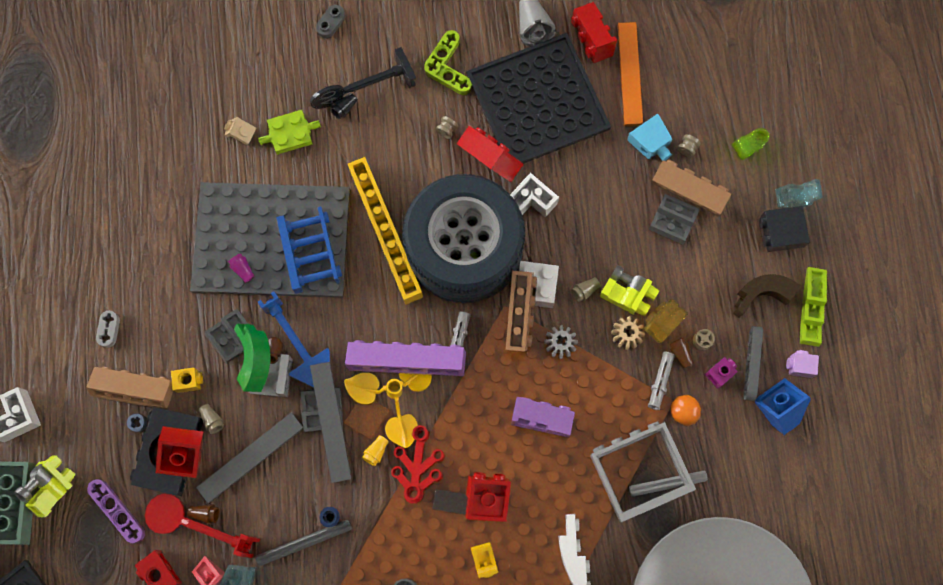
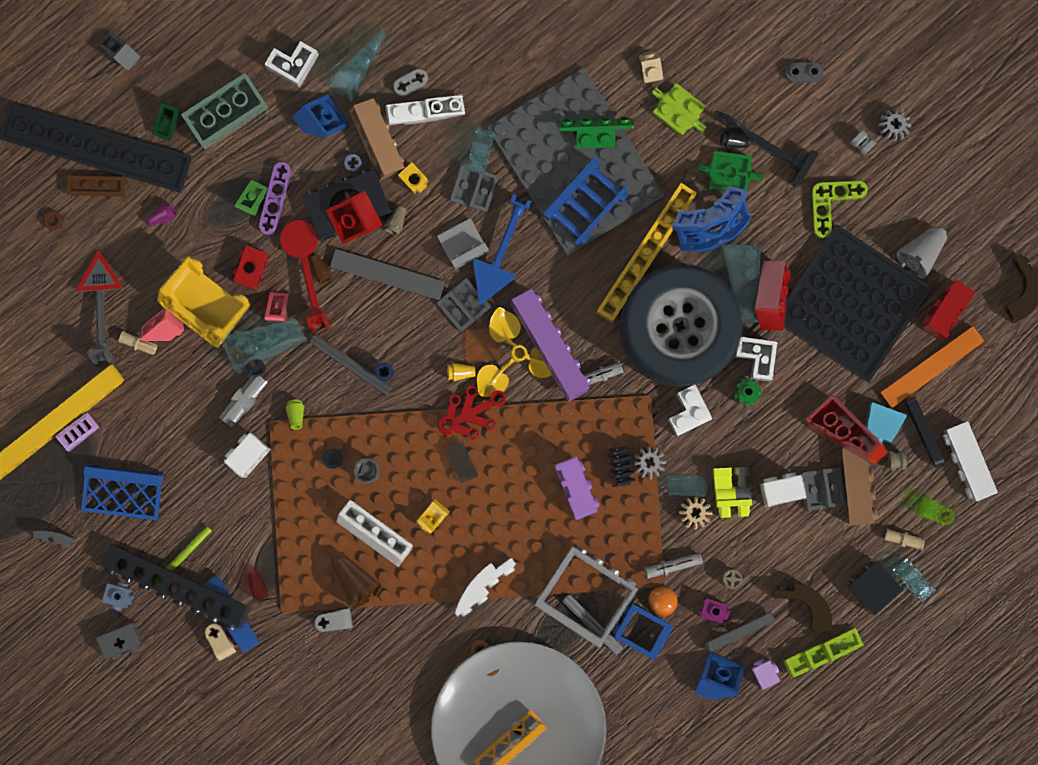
camera: 50 degrees right, 10 degrees up
(51, 484) = (262, 134): neon yellow hips -> none
(62, 371) = (352, 73): none -> clear light blue wedge
(77, 424) = (321, 117): none -> blue slope
(99, 531) = (251, 197): none -> bright green slope
(139, 332) = (425, 110): none -> white slope
(204, 308) = (480, 151): none -> clear light blue brick
(241, 267) = (533, 158): magenta cone -> none
(256, 358) = (470, 224): green arch -> none
(259, 205) = (596, 132): none -> green bracket
(276, 348) = (486, 230): reddish brown cone -> none
(330, 422) = (458, 319): dark grey tile -> none
(368, 125) = (730, 170): none -> green plate
(387, 171) = (693, 224): none -> blue fence
(421, 11) = (866, 146): none -> light grey wheel
(446, 127) = (773, 241): dark tan wheel -> none
(451, 160) = (743, 276): none -> clear light blue wedge
(487, 497) = (483, 486): red plate -> none
(520, 311) = (651, 412): medium nougat brick -> none
(549, 367) = (621, 466): none -> black piece
(555, 231) = (739, 392): none -> green brick
(584, 289) = (709, 453): dark tan cone -> none
(600, 326) = (686, 486): none -> clear light blue slope
(637, 166) = (844, 429): none -> red wedge
(656, 248) = (782, 490): none -> white brick
(665, 321) = (725, 537): clear yellow brick -> none
(679, 111) = (924, 431): none -> black beam
(682, 352) = (709, 567): reddish brown cone -> none
(719, 435) = (660, 640): none -> blue window
(726, 92) = (970, 462): none -> white brick
(757, 181) = (904, 539): none -> tan pin

